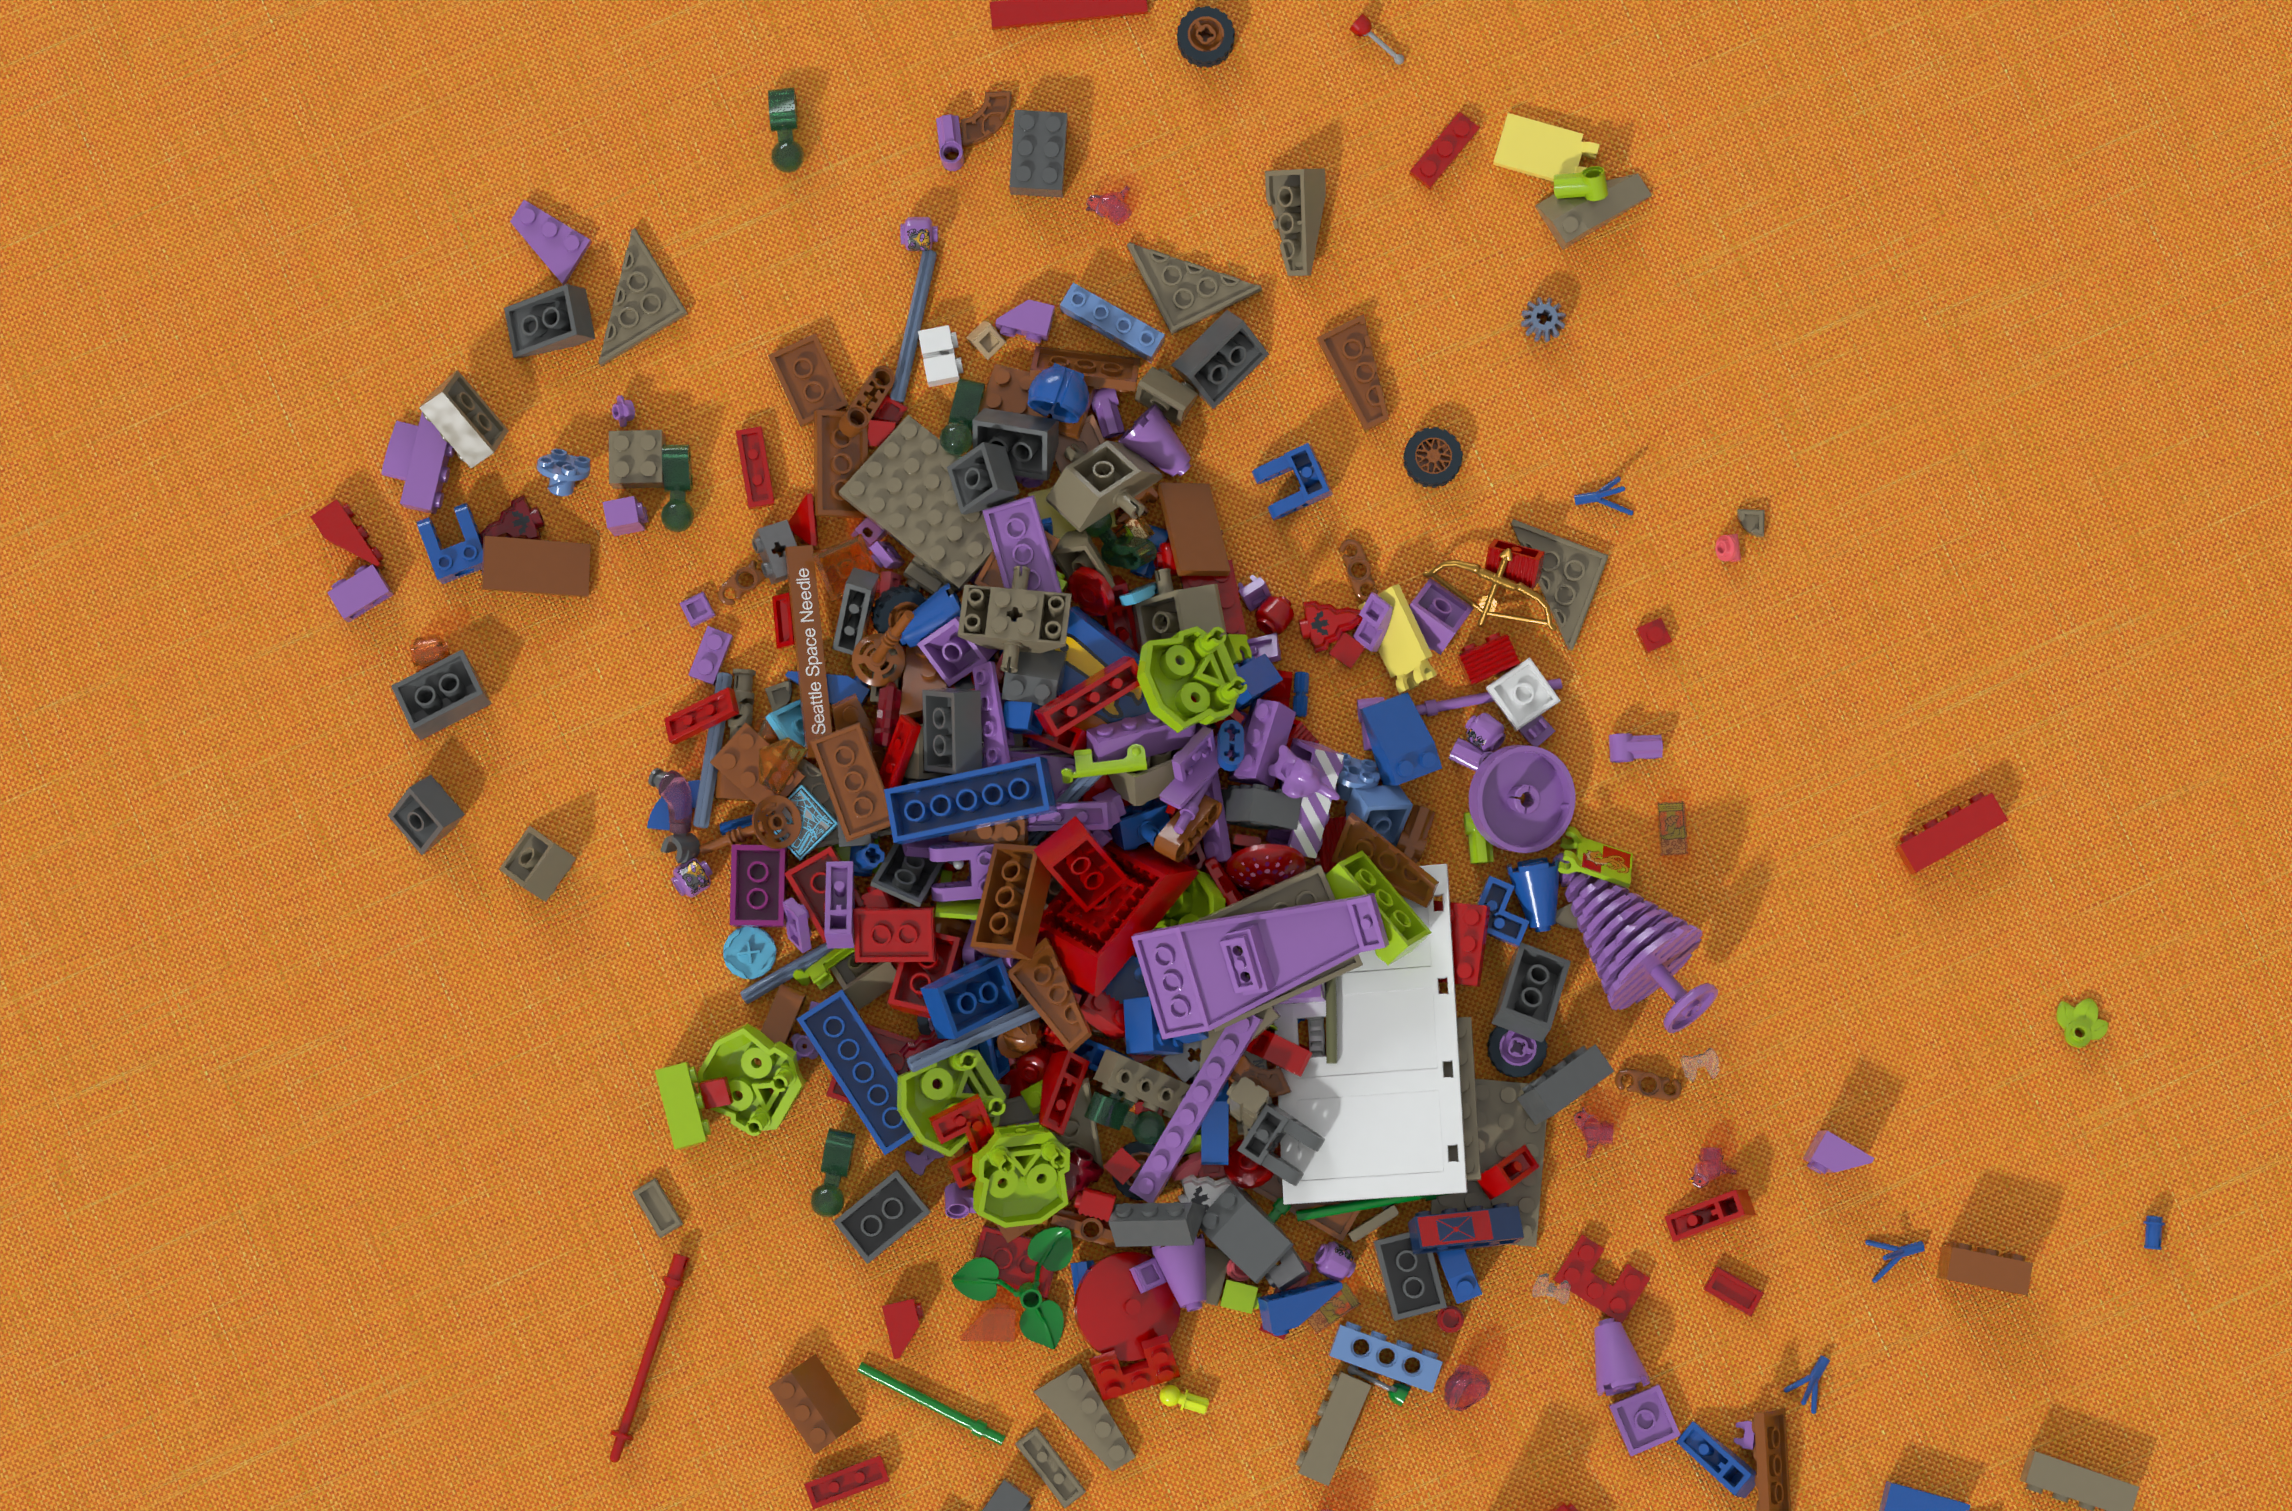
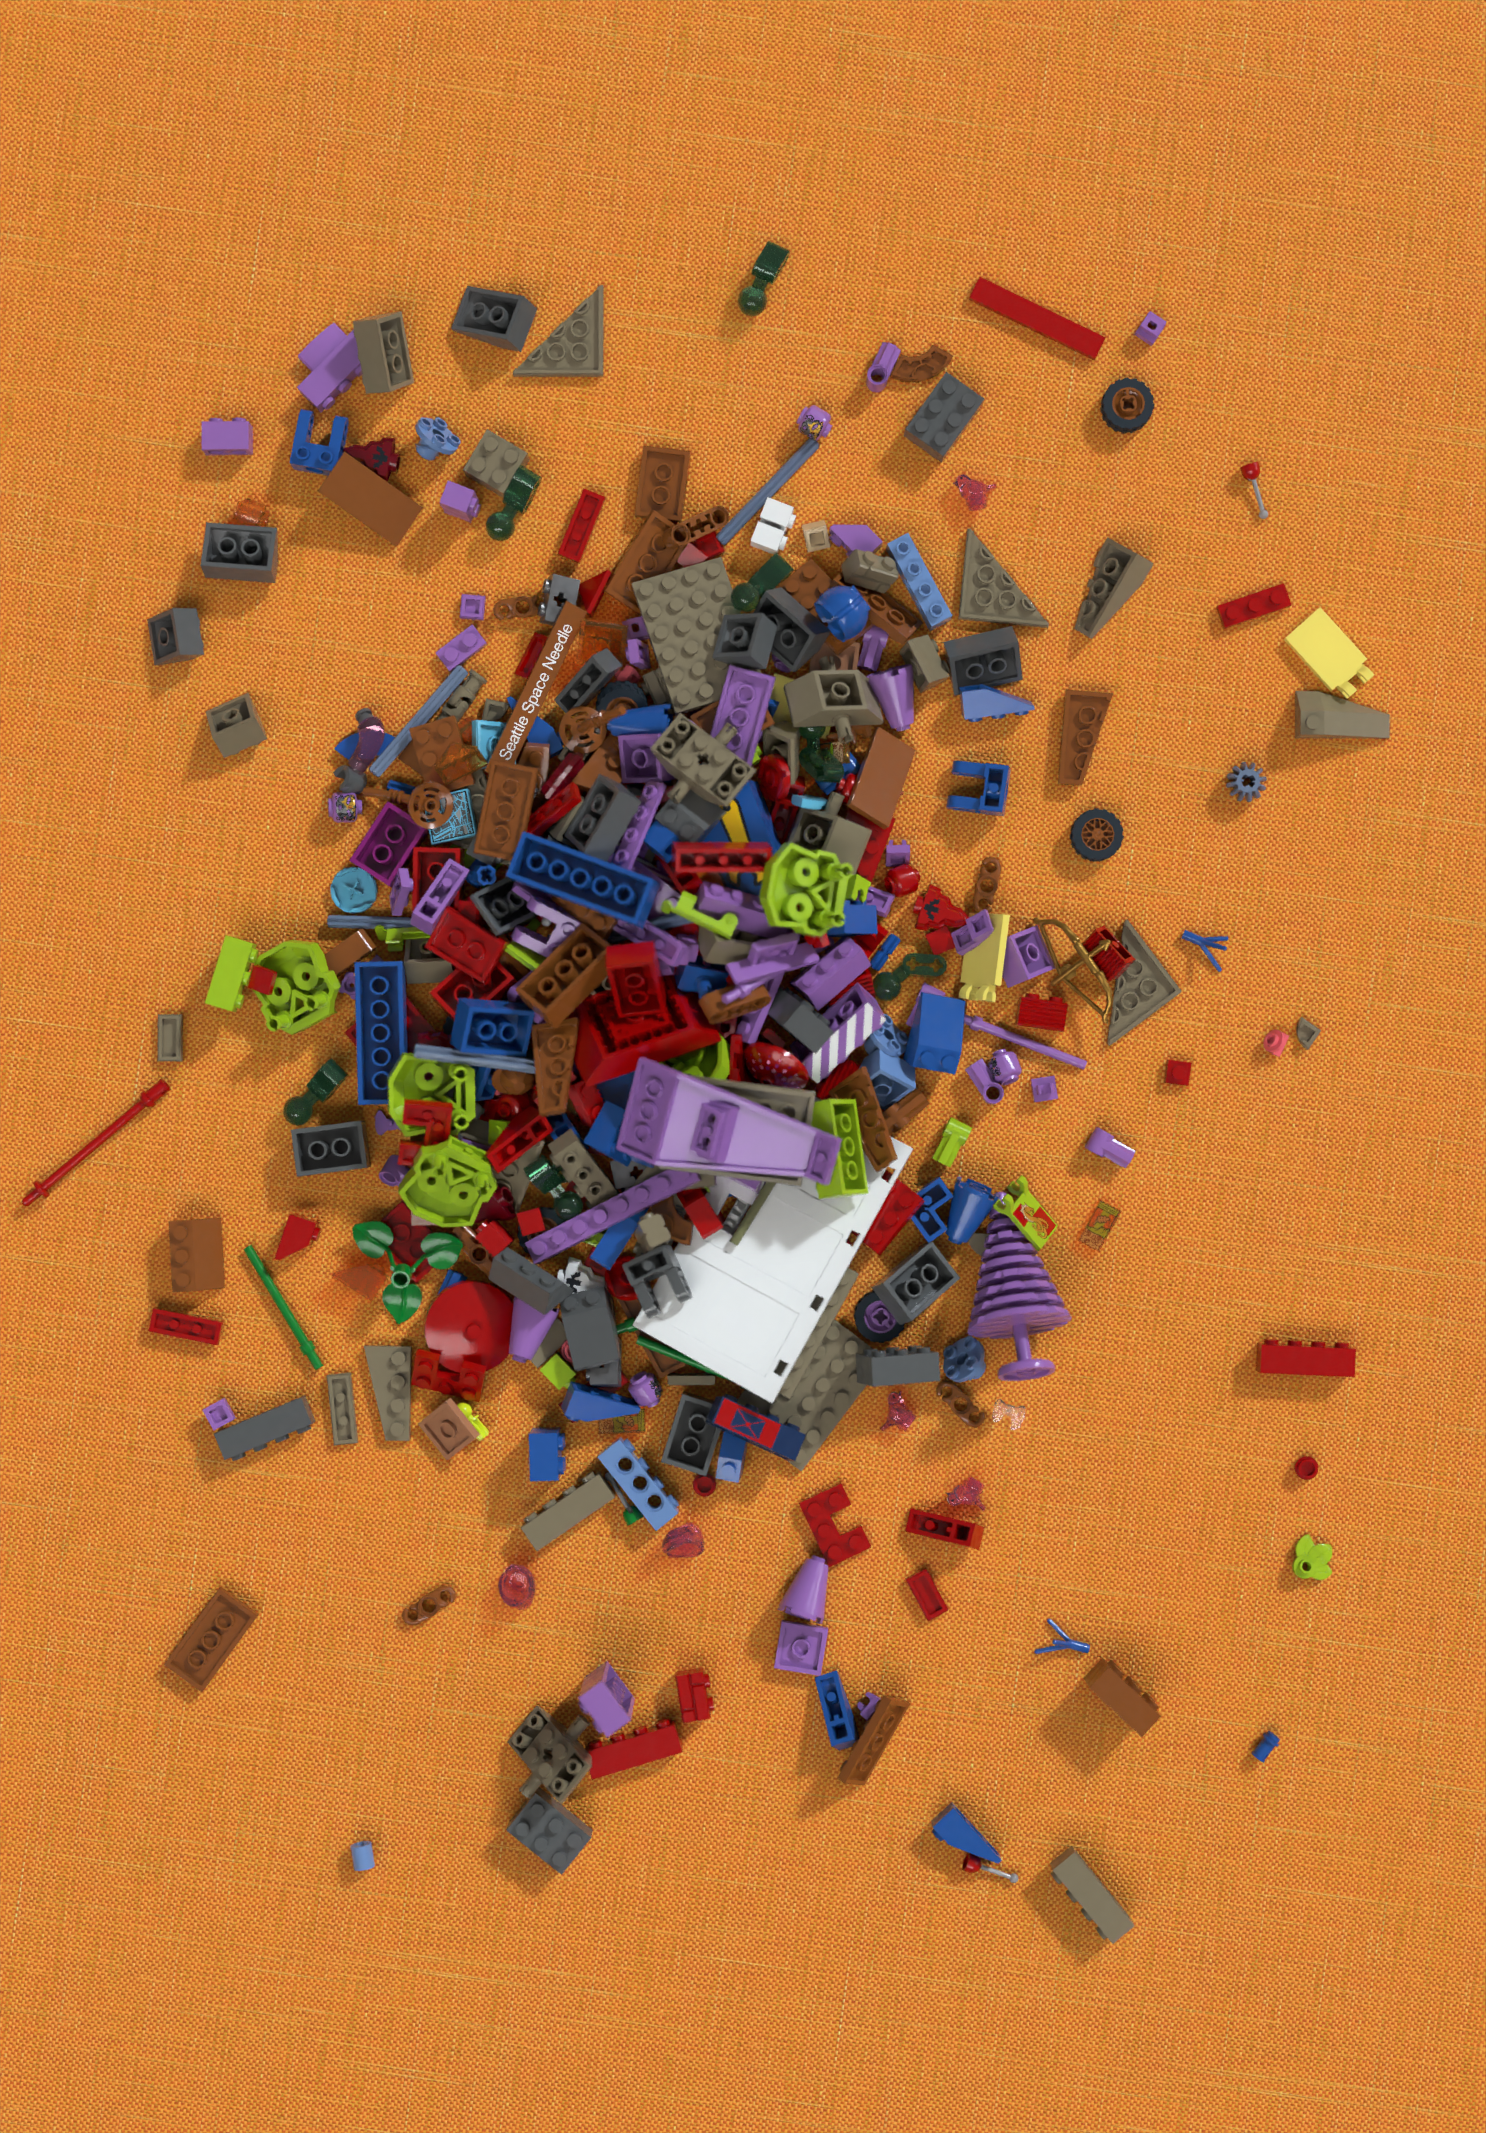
camera: 25 degrees right, 5 degrees up
(339, 528) = (241, 377): red slope -> none
(552, 240) = (534, 255): medium lavender wing -> none
(623, 411) = (508, 420): medium lavender plate -> none
(701, 715) = (425, 689): red plate -> none
(1059, 340) = (869, 570): none -> dark tan brick
(1147, 1275) = (499, 1314): medium lavender tile -> none
(1167, 1420) = (448, 1429): none -> nougat plate
(1188, 1168) = (580, 1253): coral tile -> none
(1235, 745) = (809, 962): blue beam -> none
(1248, 395) = (985, 701): none -> slope
(1277, 1384) = (545, 1454): none -> blue brick
(1299, 776) = (841, 1015): medium lavender animal -> none
(1324, 722) = (888, 984): none -> clear green beam
(1507, 1172) = (814, 1404): red slope -> none
(1523, 694) = (1051, 1056): white tile -> none
(1542, 1287) = (787, 1504): clear piece -> none
(1547, 801) = (1013, 1153): medium lavender piece -> none
(1589, 184) = (1345, 698): lime piece -> none
(1625, 1038) = (964, 1360): none -> medium blue plate
(1813, 1377) = (946, 1694): blue plant -> none
(1834, 1154) = (1064, 1543): medium lavender slope -> none
(2018, 937) = (1306, 1467): none -> red plate

